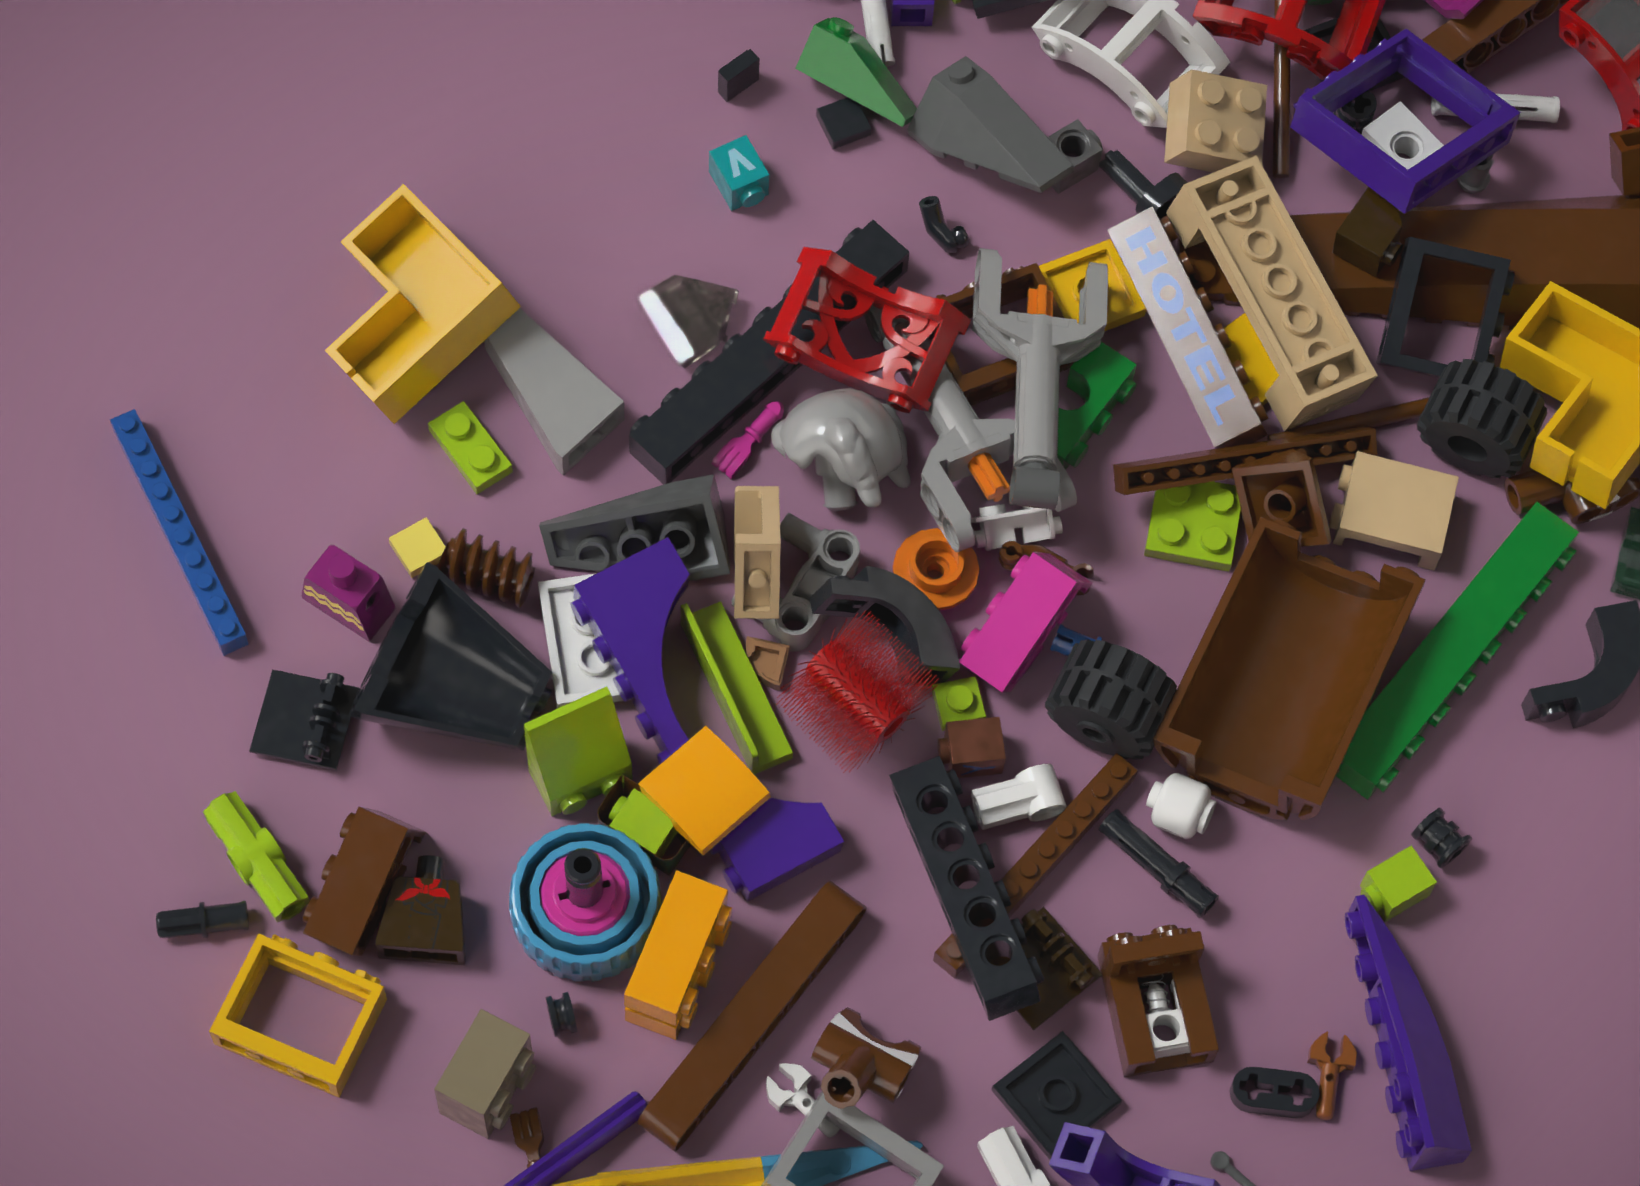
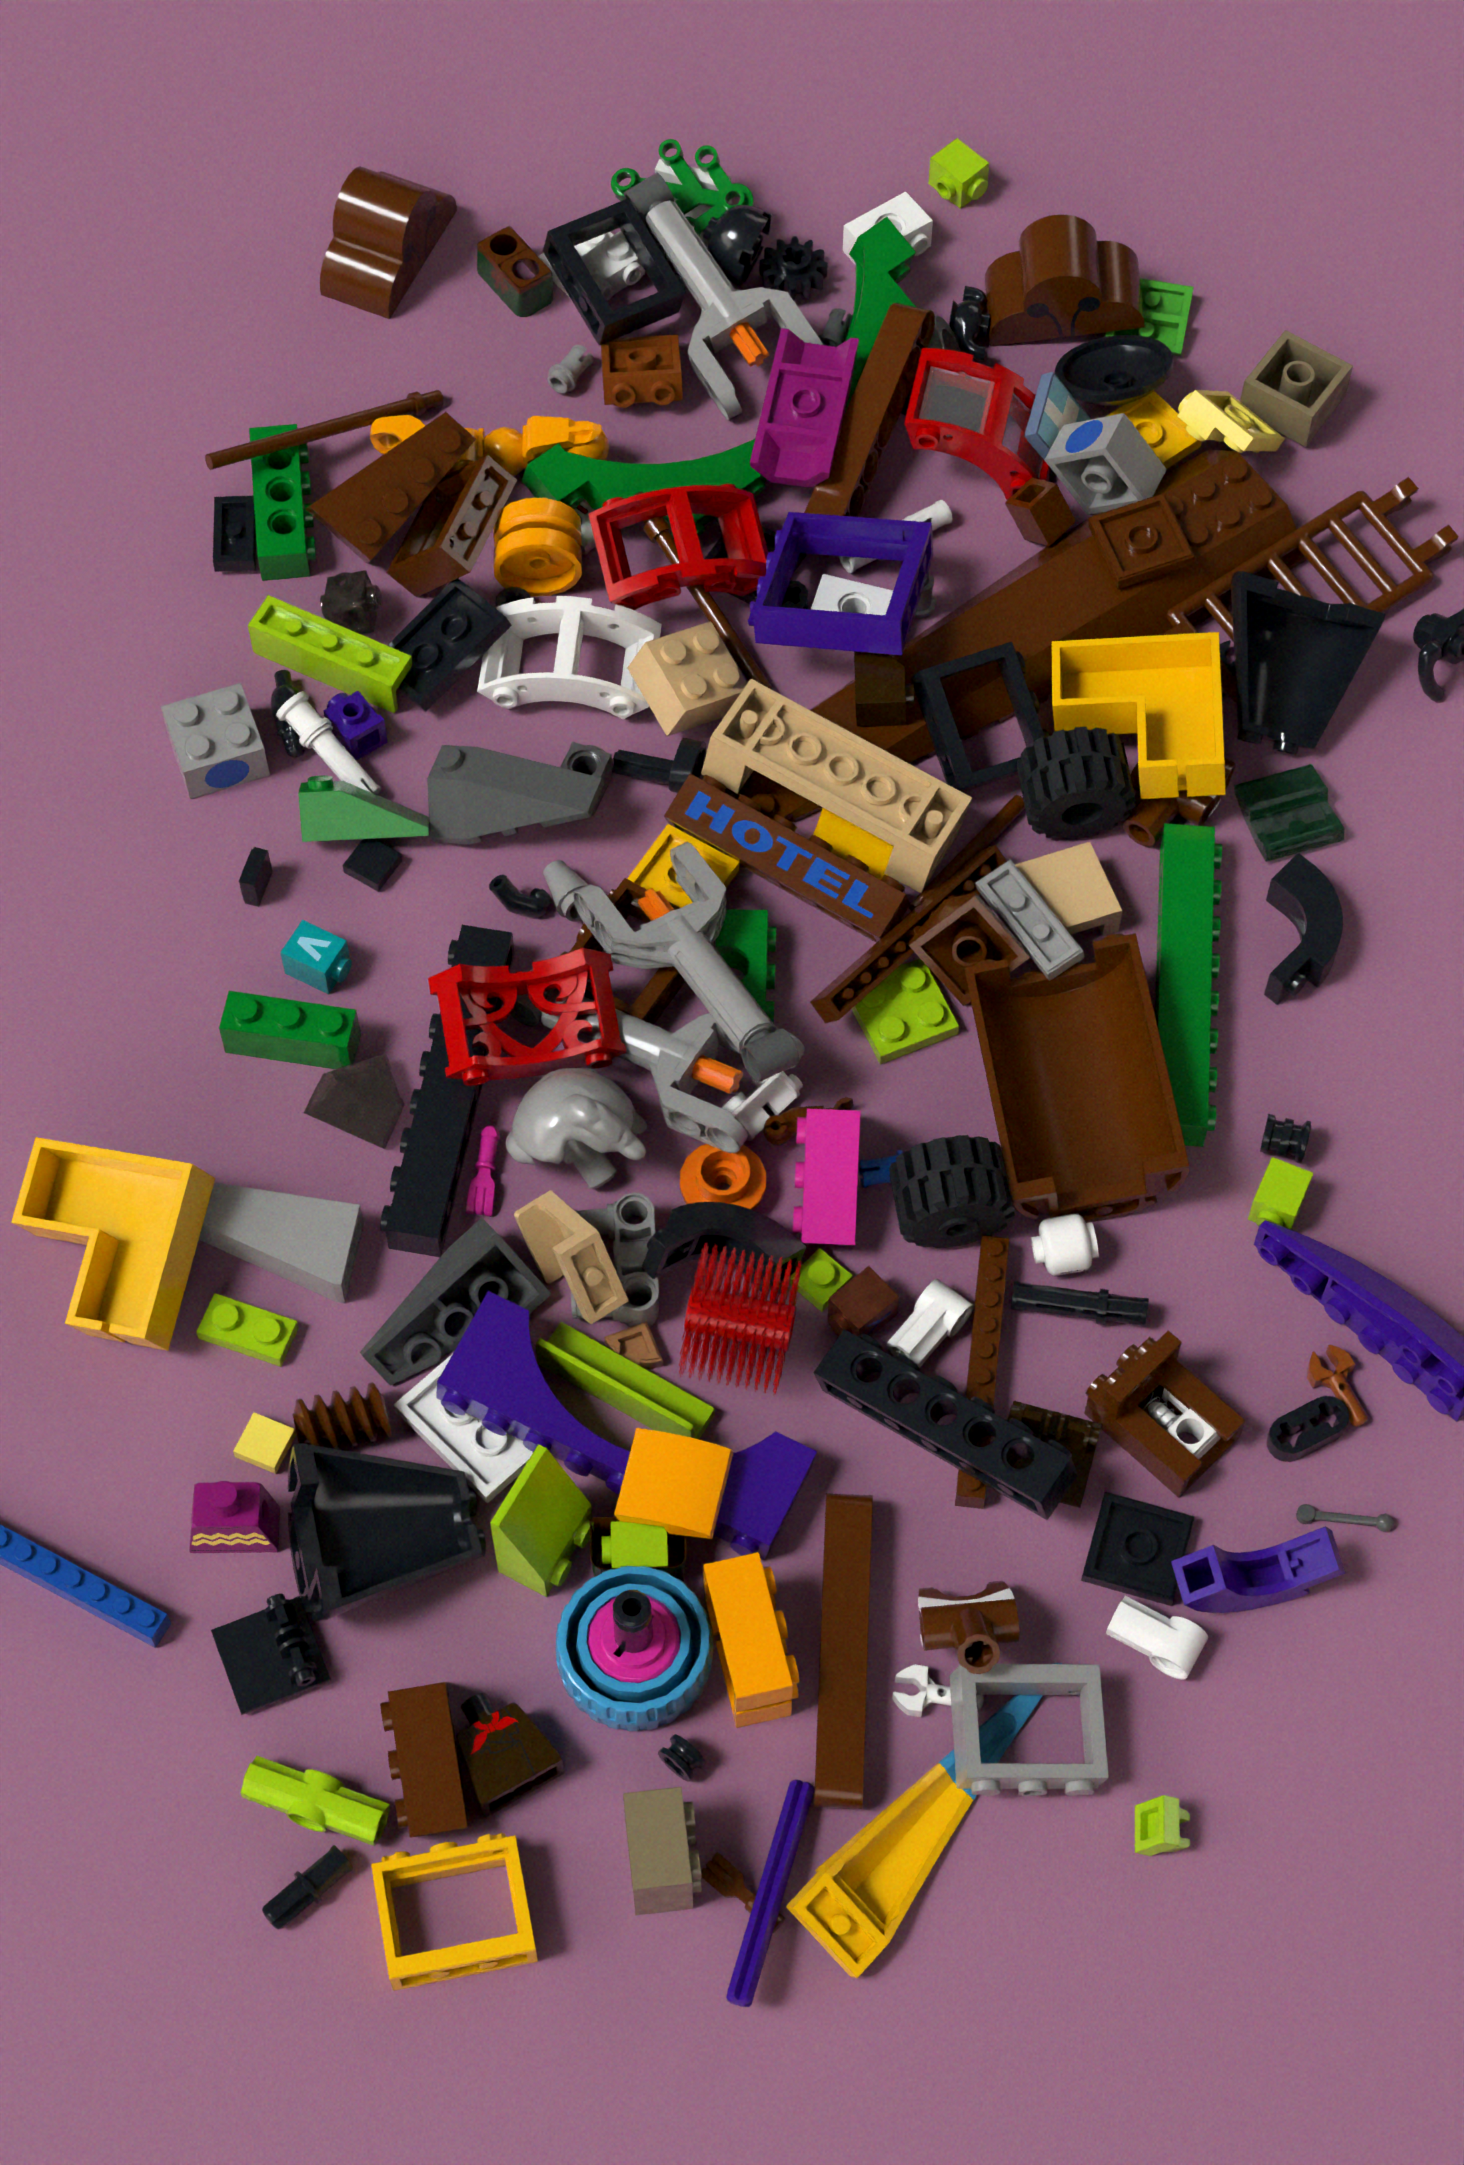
camera: 30 degrees left, 5 degrees down
(673, 222) = (289, 1030): none -> green brick
(987, 235) = (562, 883): none -> light grey cone
(1352, 512) = (1030, 920): none -> light grey tile

